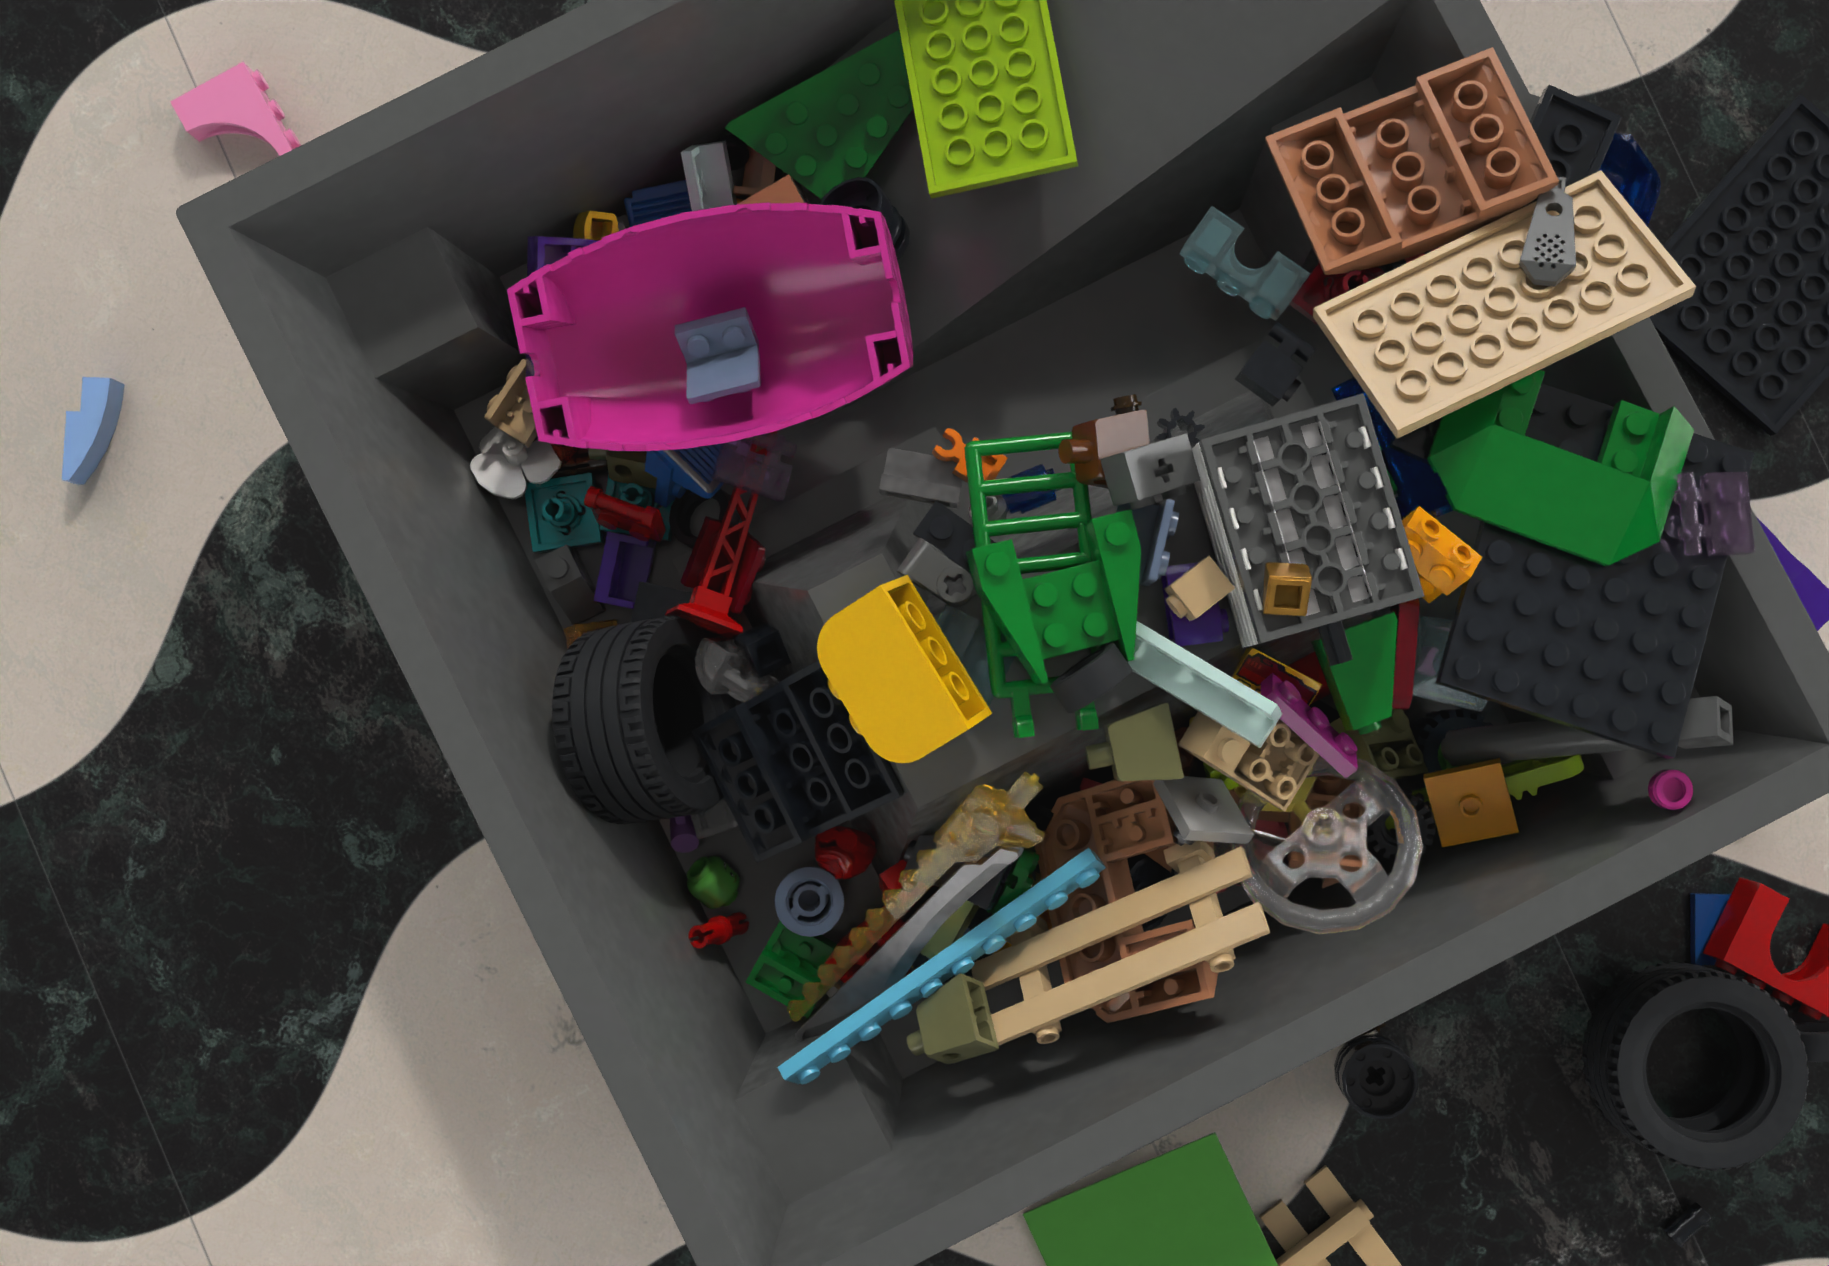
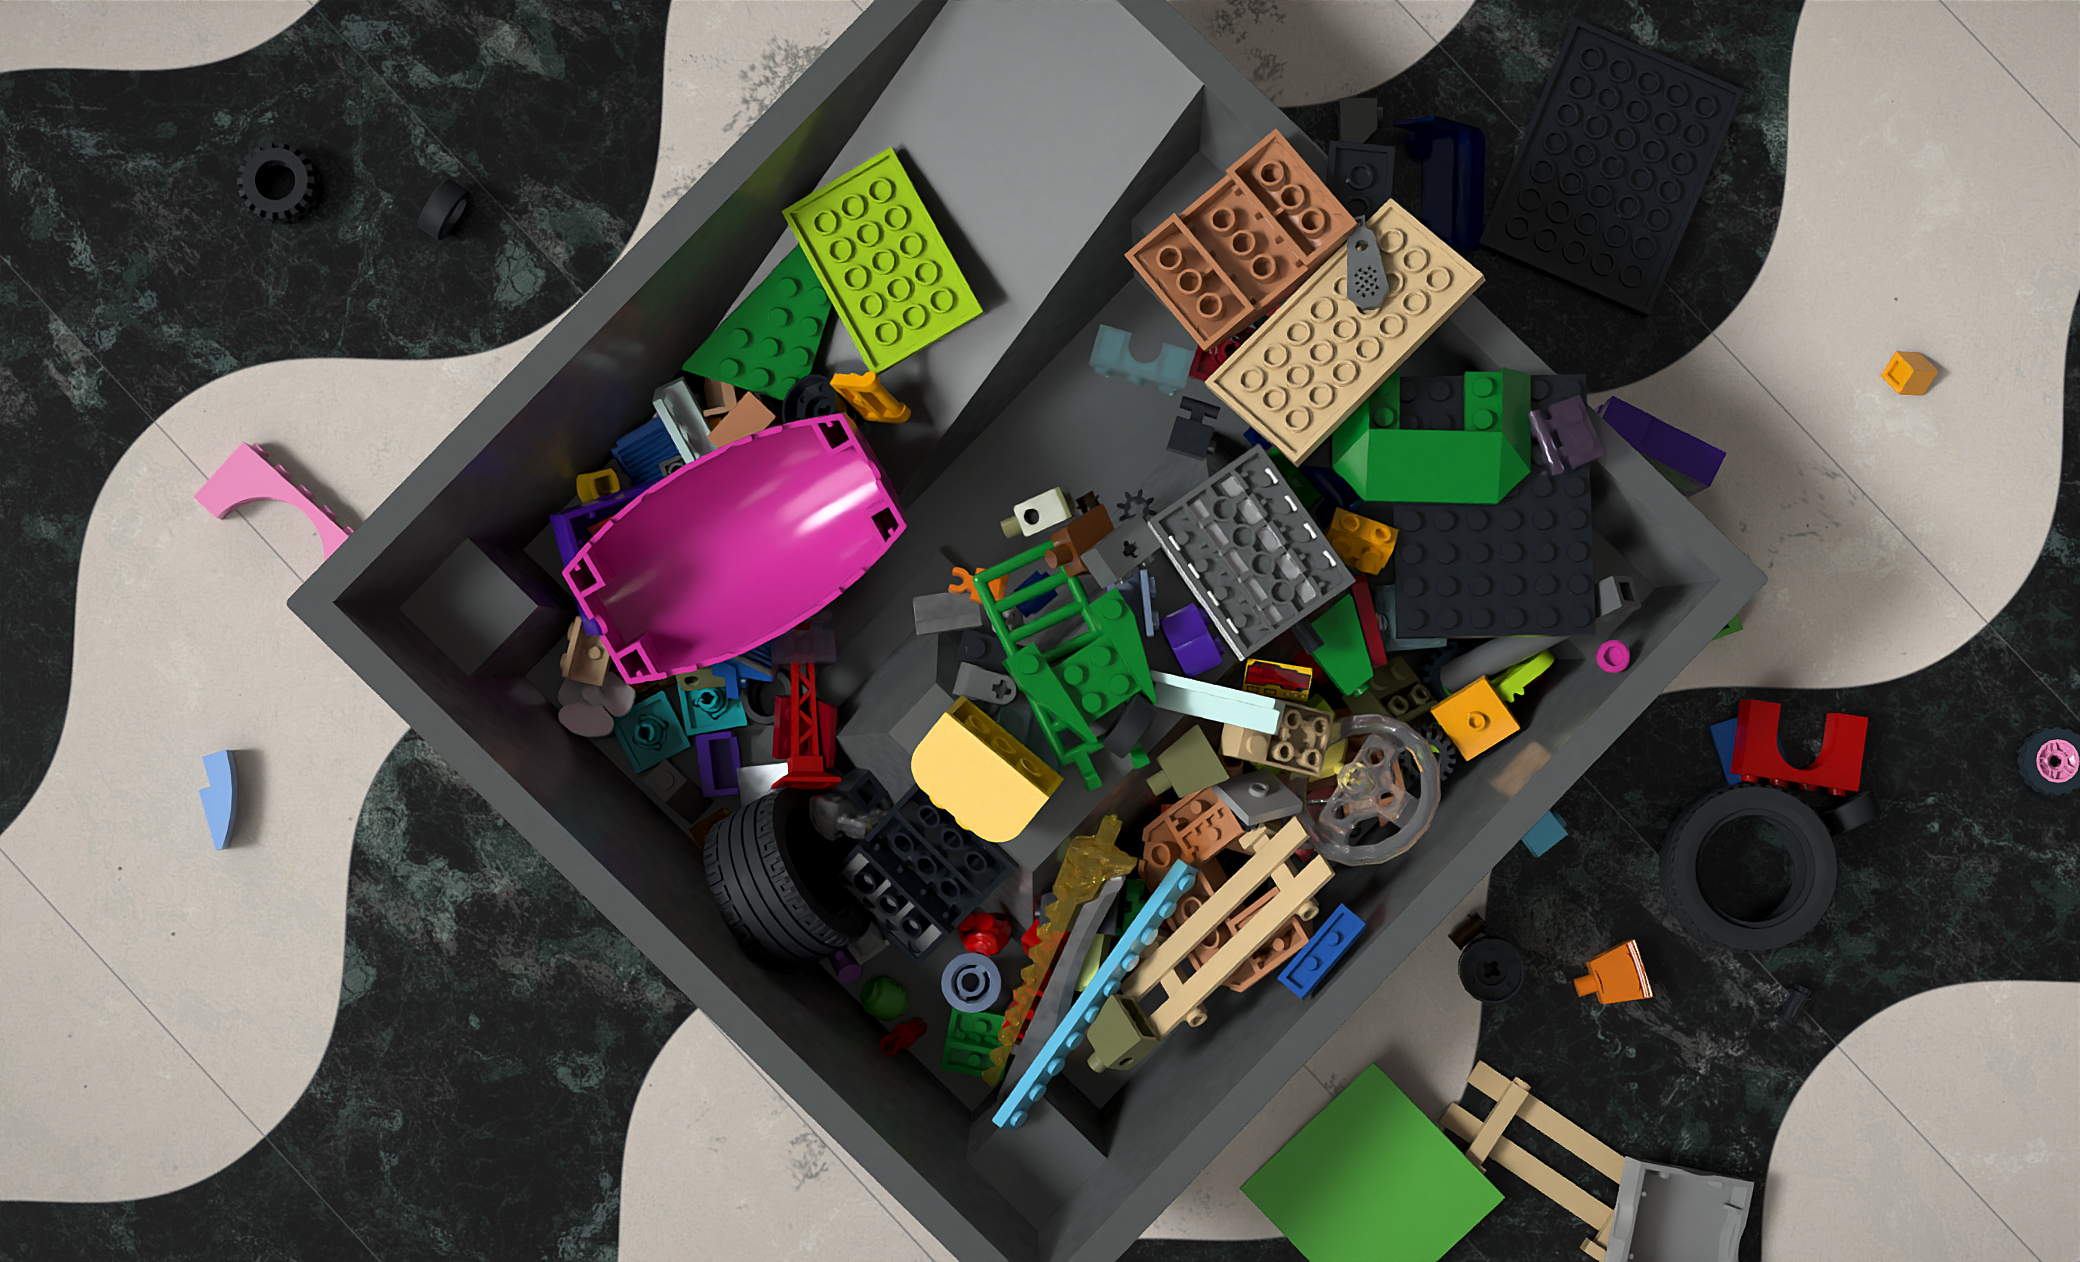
camera: 25 degrees left, 0 degrees up
(614, 513) = (696, 718): red plate -> none
(719, 355) = (746, 563): sand blue bracket -> none
(918, 220) = (870, 397): none -> light orange plate
(1086, 394) = (1054, 509): none -> torso
(1198, 589) = (1188, 631): tan brick -> none
(1221, 1015) = (1322, 952): none -> blue plate
(1286, 589) = (1250, 611): pearl gold slope -> none
(1311, 725) = (1314, 703): magenta plate -> none
(1506, 1127) = (1616, 975): none -> orange torso

